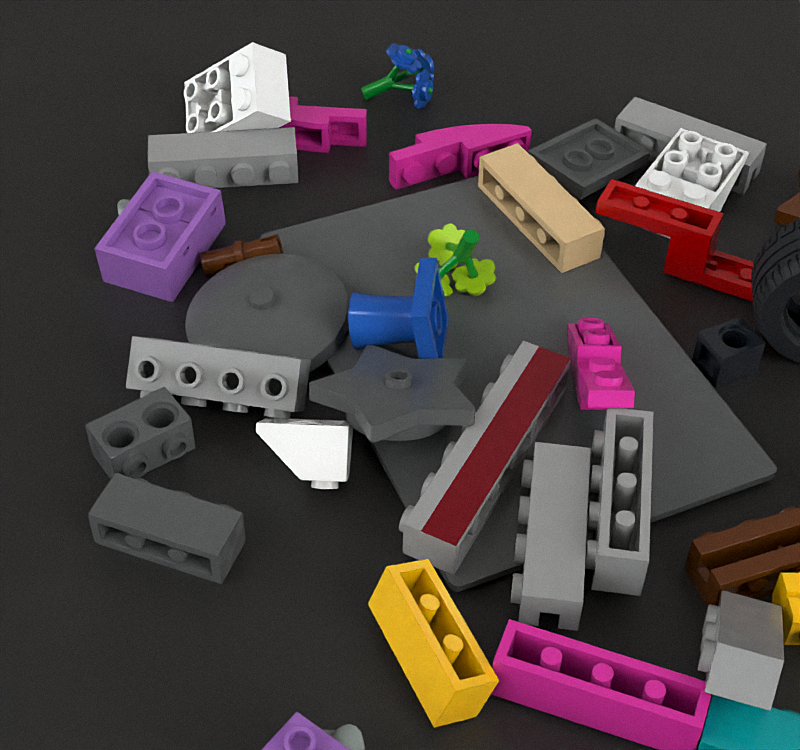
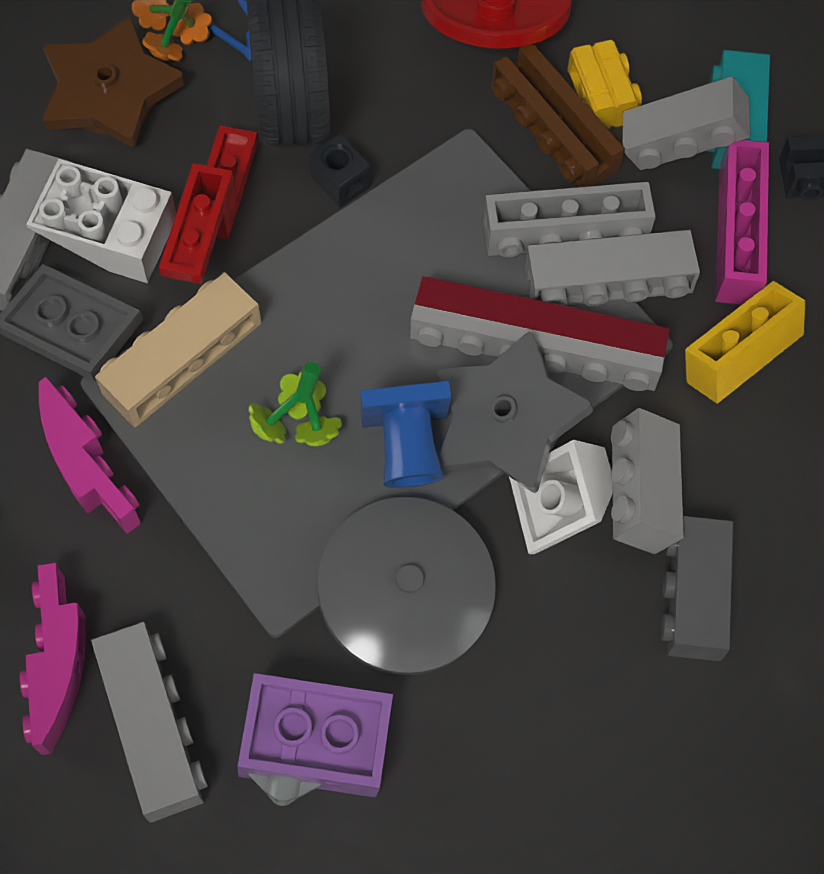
camera: 105 degrees left, 20 degrees up
(141, 435) = (596, 659): dark grey brick -> none
(219, 259) = (318, 640): reddish brown pin -> none
(220, 375) = (514, 598): light grey brick -> none
(239, 93) = (63, 718): white slope -> none
(293, 494) = (646, 481): none -> light grey brick
(597, 366) = (401, 261): dark pink slope -> none

